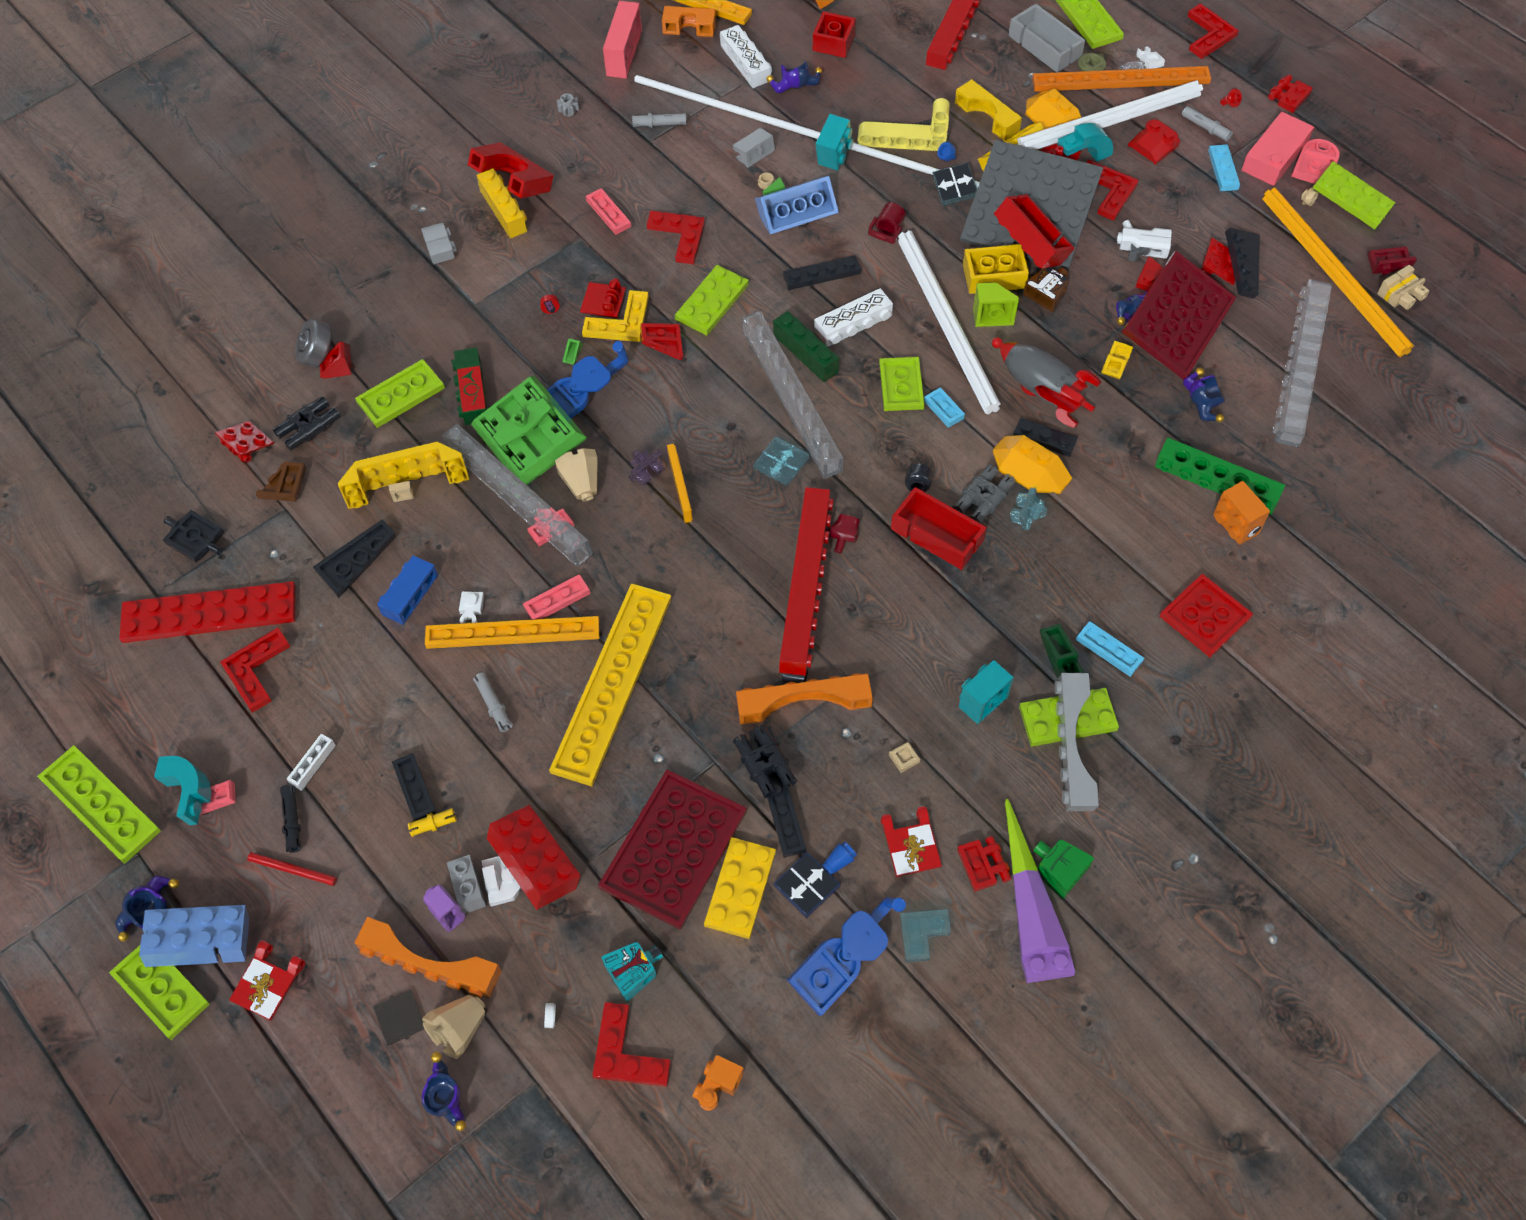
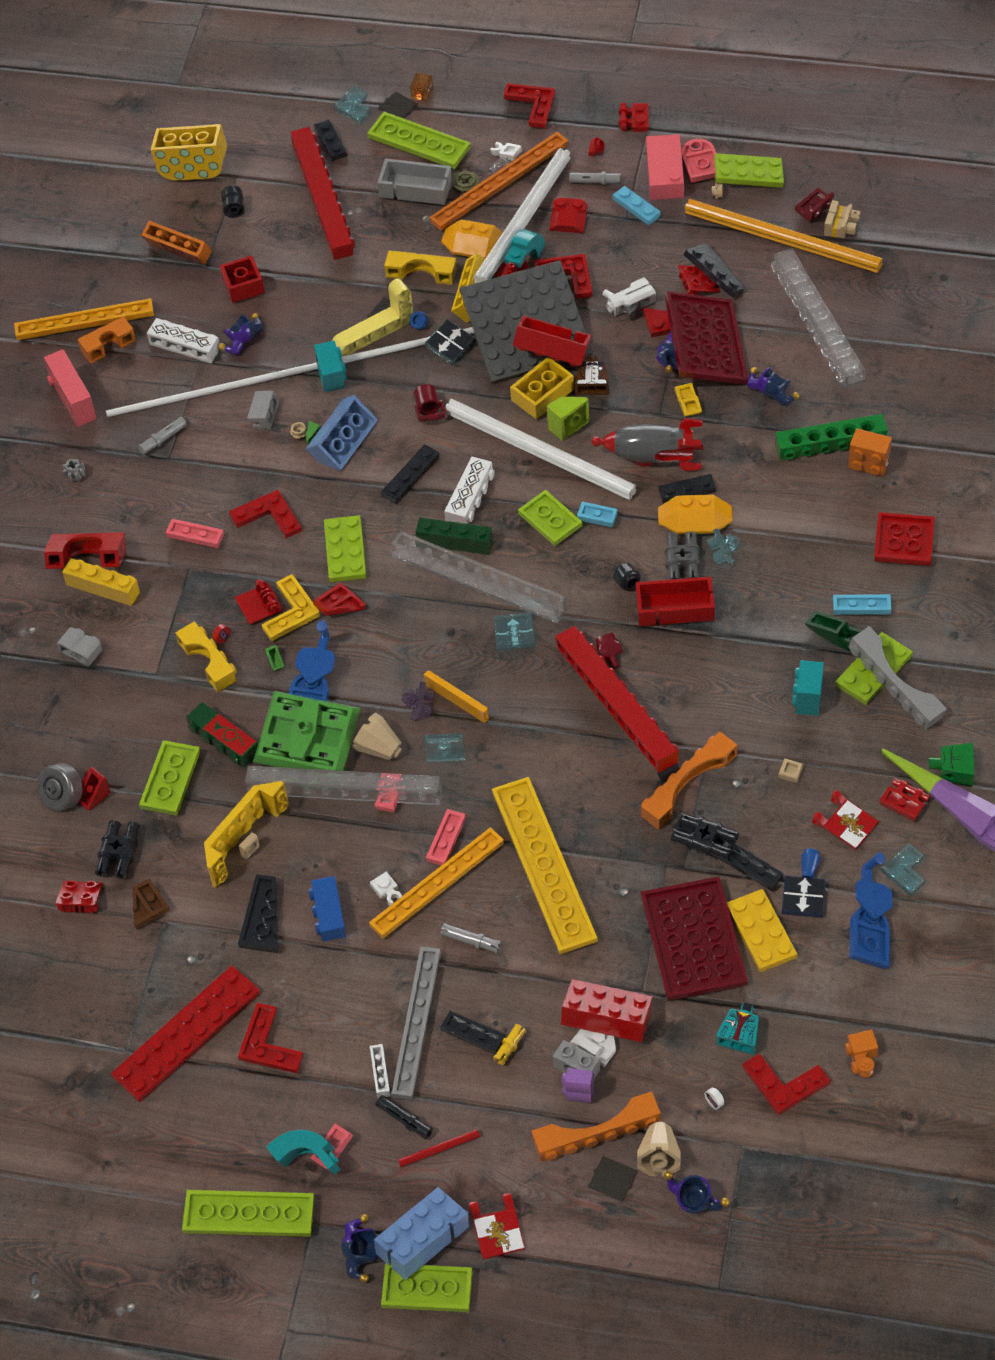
camera: 35 degrees left, 5 degrees down
(193, 535) = (115, 989): black plate -> none
(378, 743) = (416, 1023): none -> light grey plate
(518, 333) = (195, 641): none -> yellow arch
(623, 519) = (444, 747): none -> clear light blue plate

